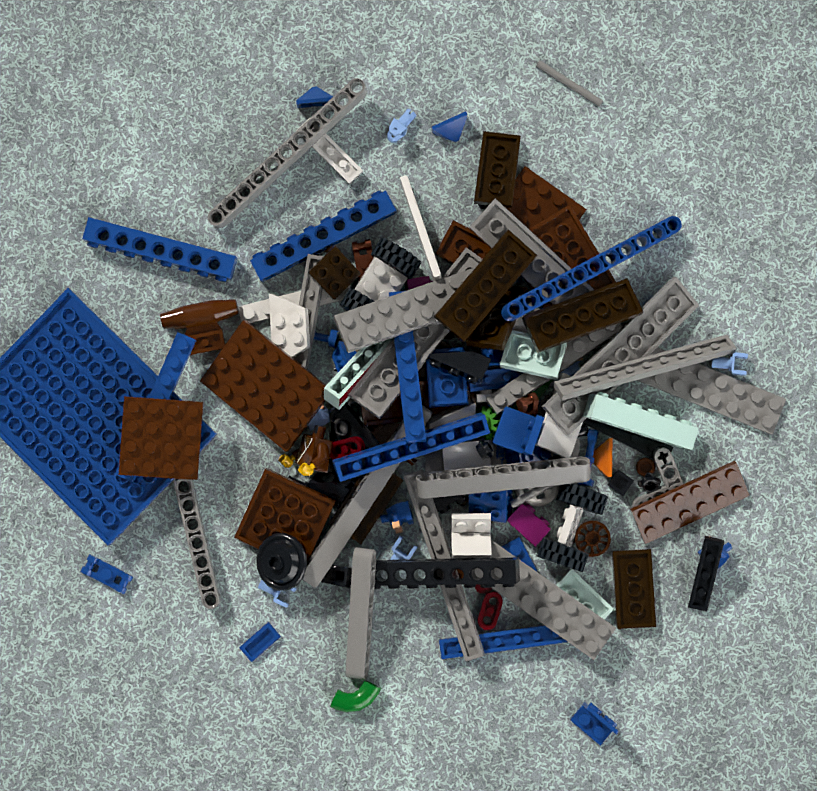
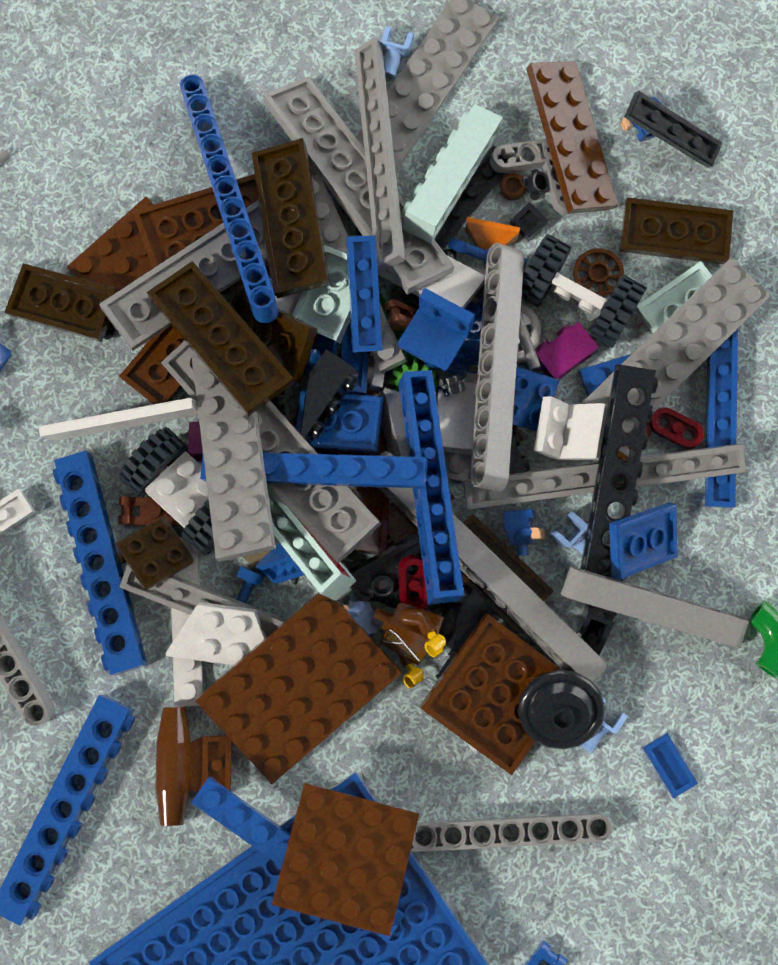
camera: 75 degrees left, 5 degrees down
(404, 598) = (643, 540): none -> blue tile
(533, 377) = (364, 293): none -> blue plate

